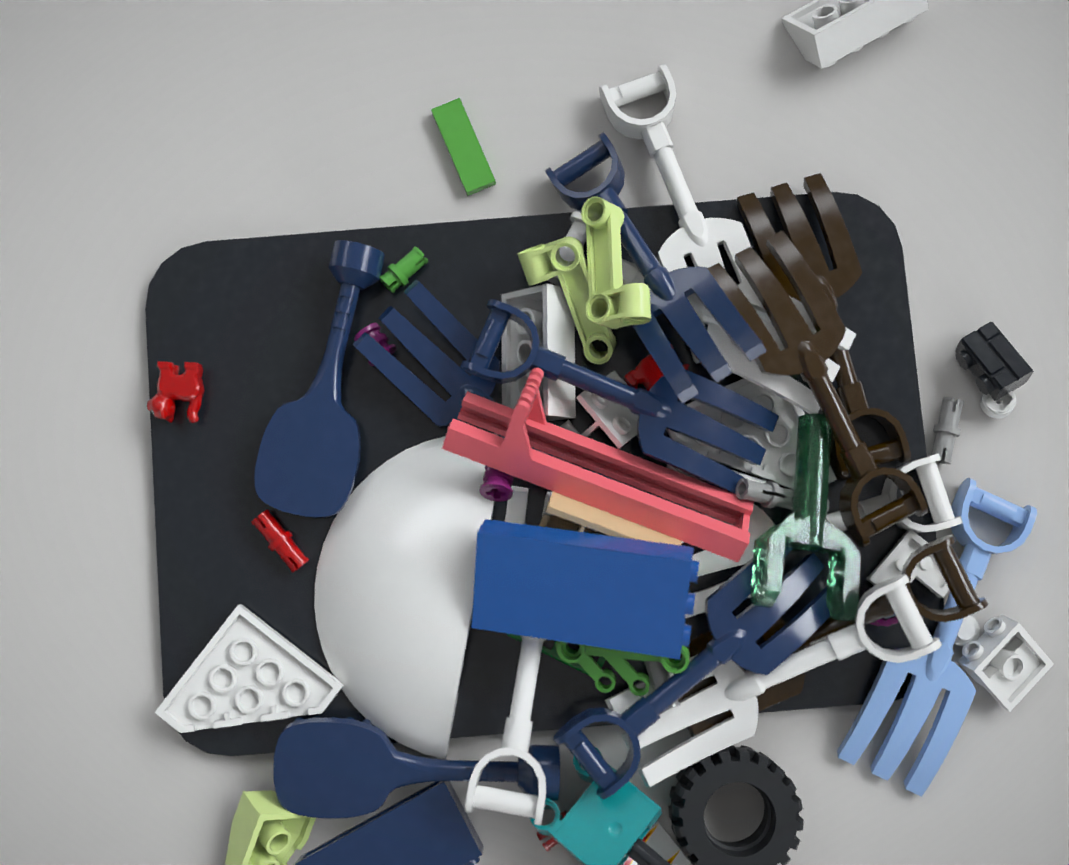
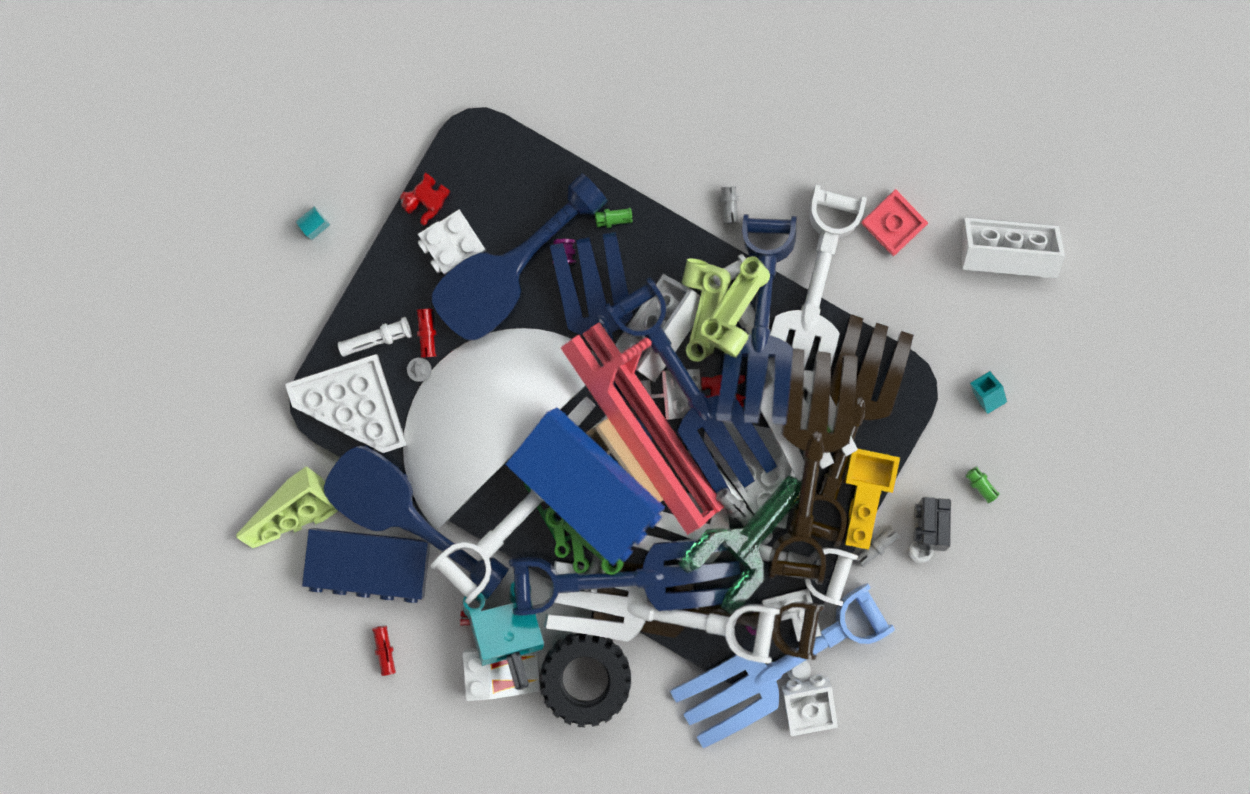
camera: 35 degrees right, 5 degrees up
(70, 507) = (312, 223): none -> teal brick
(234, 574) = (385, 334): none -> white pin
(237, 420) = (450, 242): none -> white plate
(300, 588) = (419, 369): none -> light grey tile
(463, 146) = (705, 162): bright green tile -> none
(496, 485) = (577, 391): magenta bush -> none
(522, 173) = (729, 202): none -> light grey pin
(712, 72) = (894, 222): none -> coral plate
(888, 354) = (871, 475): none -> yellow plate
(944, 179) = (989, 392): none -> teal brick
(1006, 282) = (979, 481): none -> bright green pin

